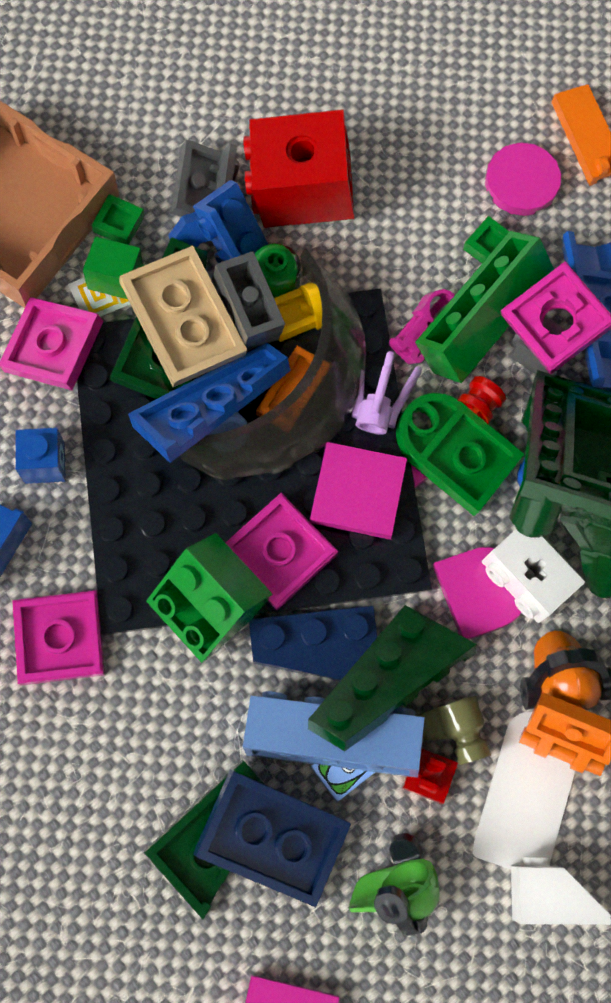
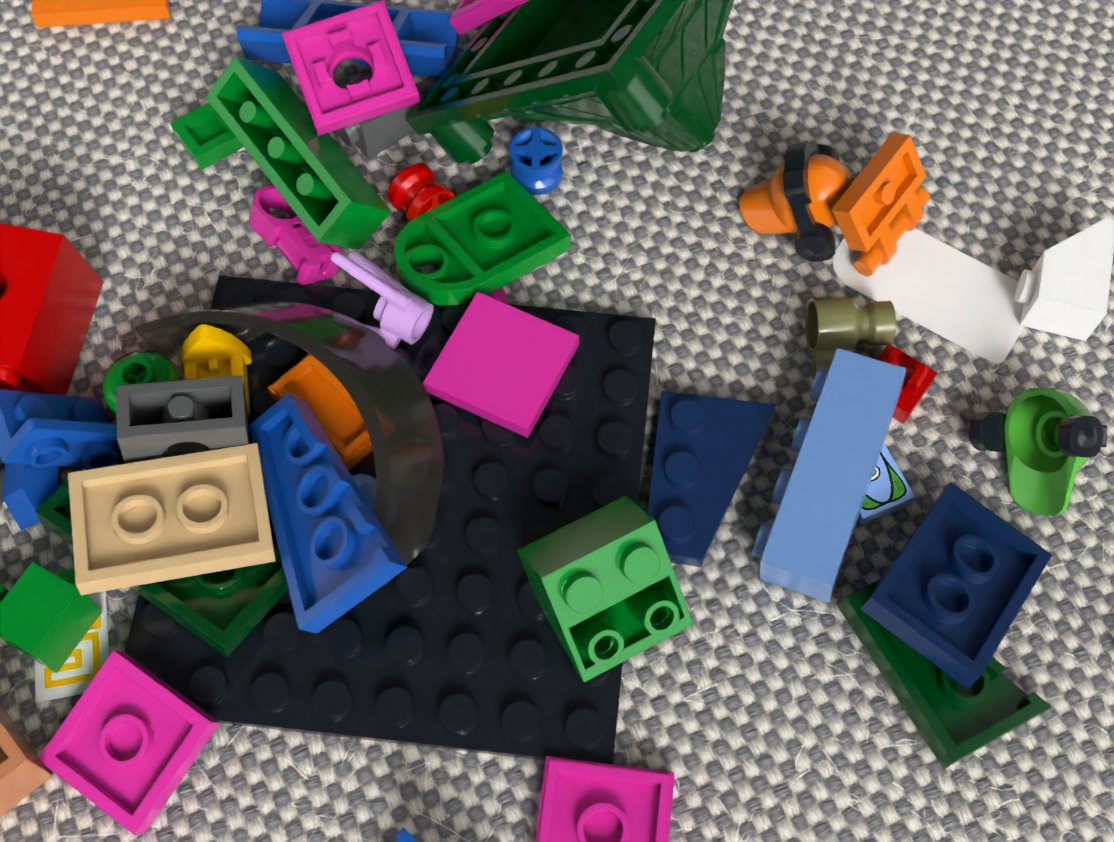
camera: 70 degrees left, 10 degrees down
(40, 455) = (311, 791): blue brick -> none
(282, 549) = (554, 476): dark pink tile -> none
(389, 674) = (769, 381): dark green wing -> none
(472, 597) = (670, 265): dark pink tile -> none
(522, 179) = (131, 80): dark pink tile -> none
(552, 579) = (668, 192): white brick -> none

